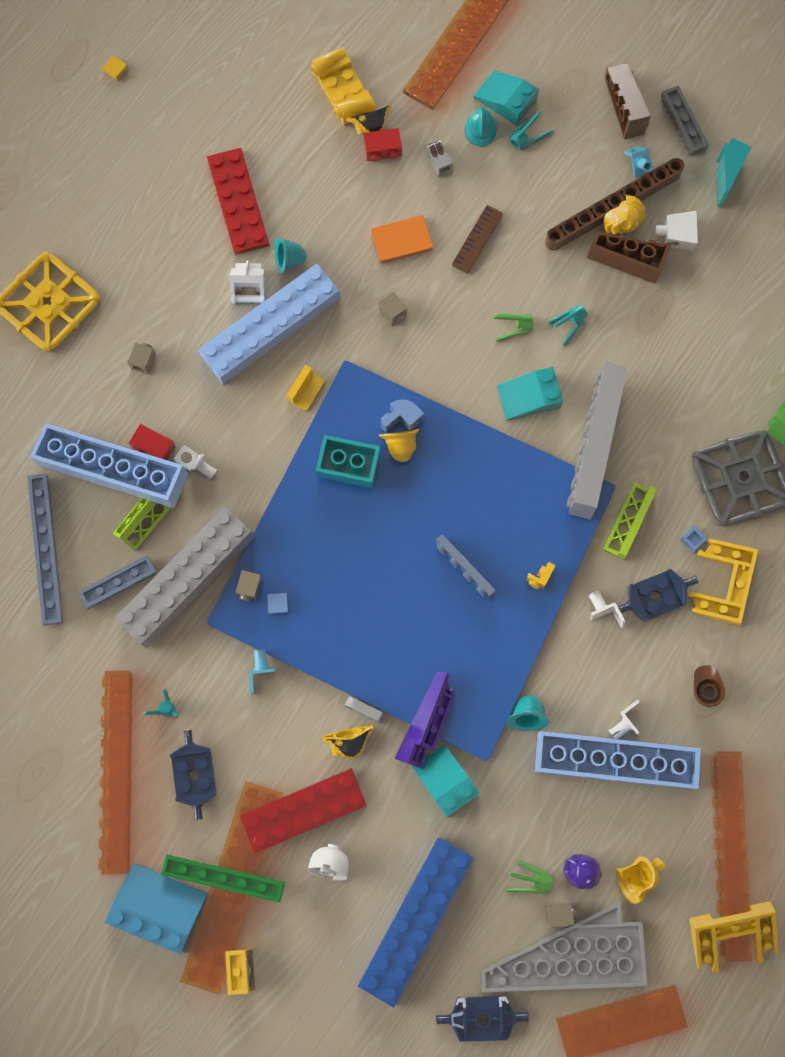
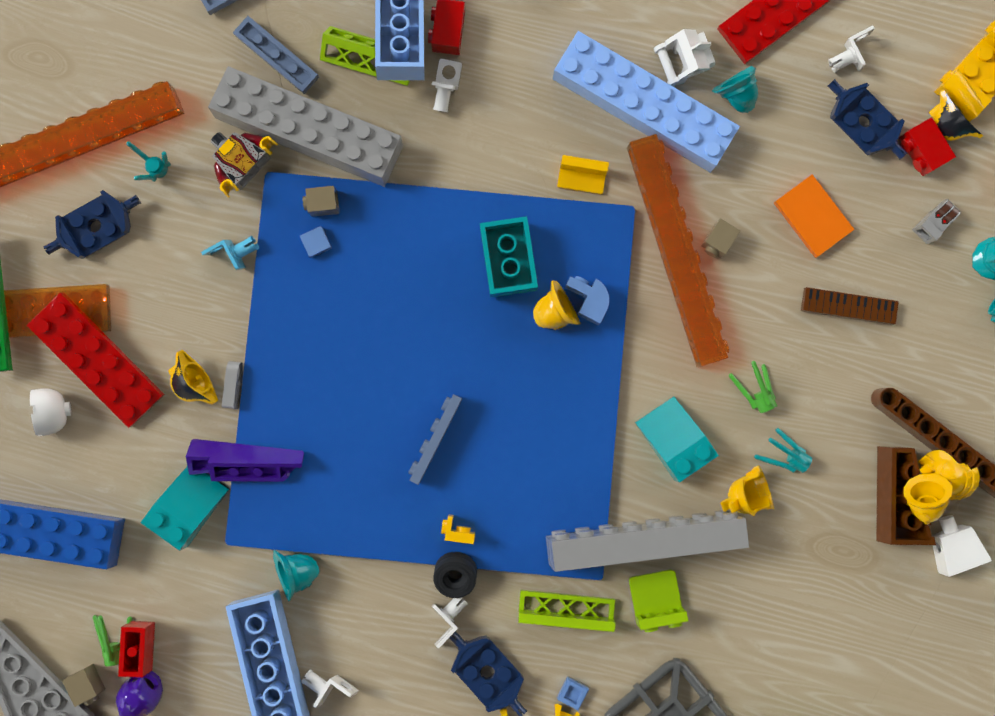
camera: 65 degrees right, 10 degrees up
(188, 638) = (239, 158): none -> torso
(294, 169) = (852, 53): none -> white bracket
(356, 168) = (883, 126): none -> dark blue plate
(390, 342) = (677, 250): none -> clear orange brick
(545, 858) = (136, 649): none -> red brick
(584, 590) = (455, 562): none -> black tyre
(589, 357) = (749, 494): none -> yellow helmet
(634, 234) = (928, 496): none -> yellow piece
(645, 451) = (657, 600): none -> lime bracket

